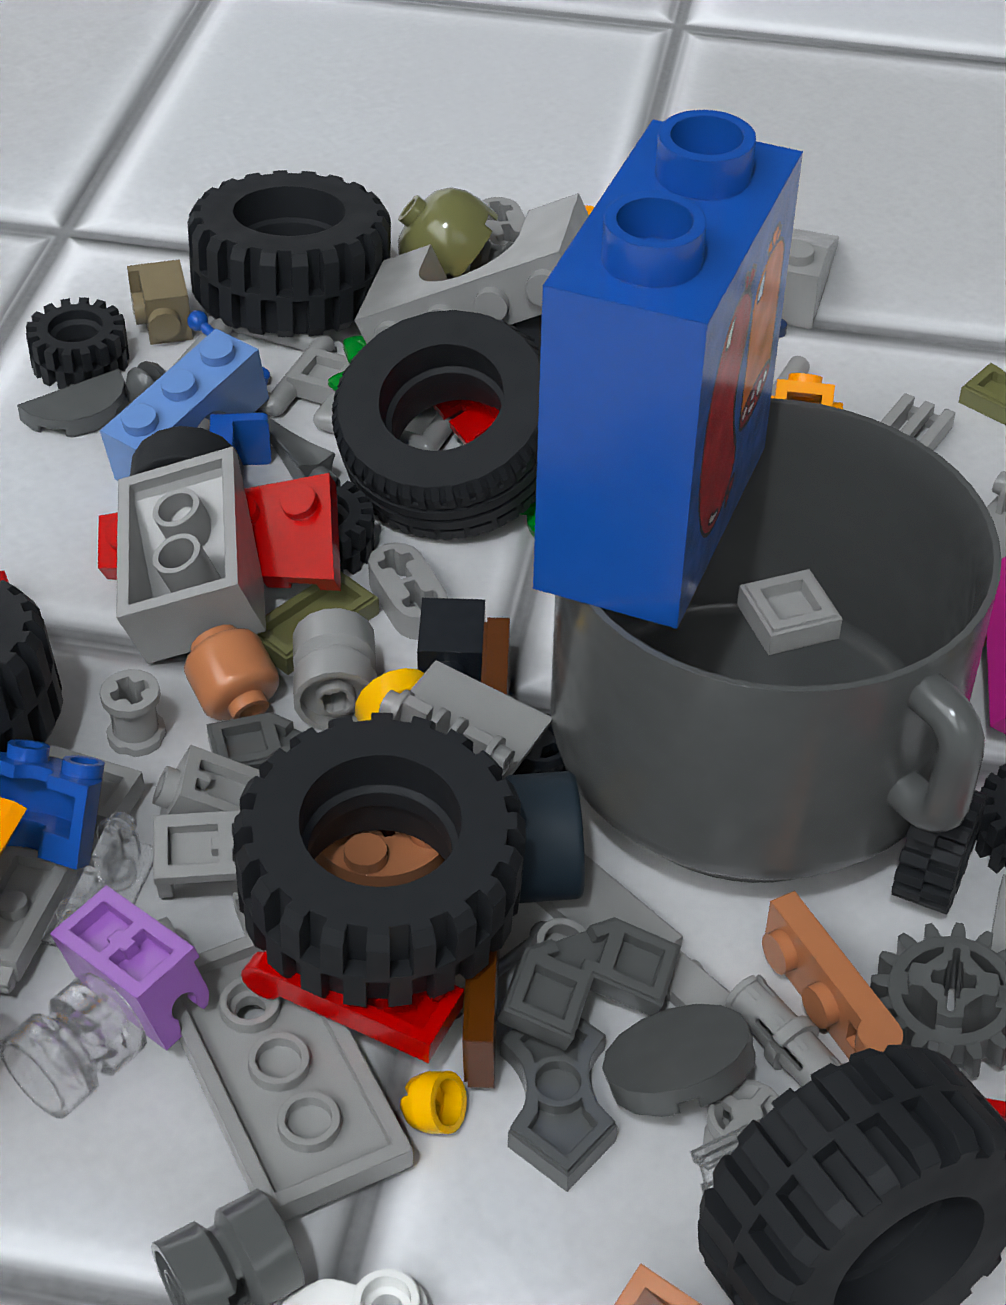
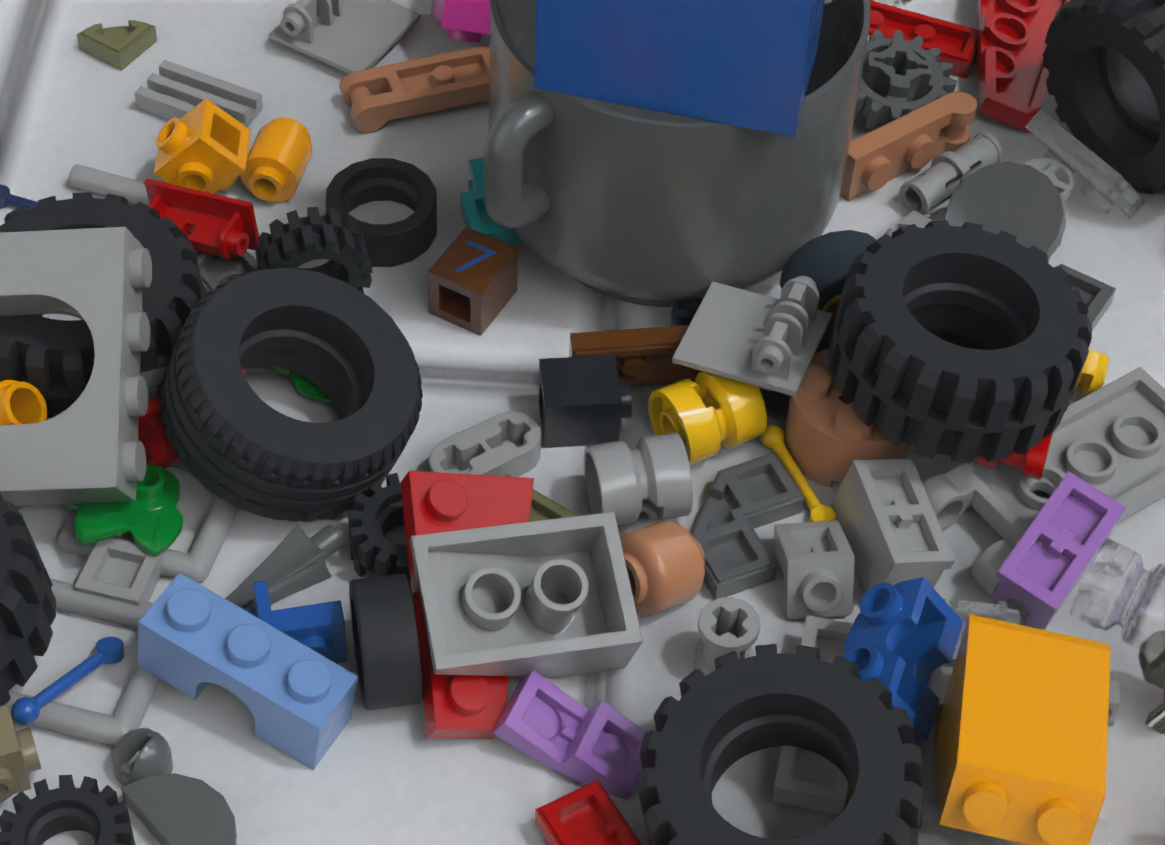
camera: 100 degrees left, 5 degrees up
(80, 609) = (572, 738): none -> medium lavender slope

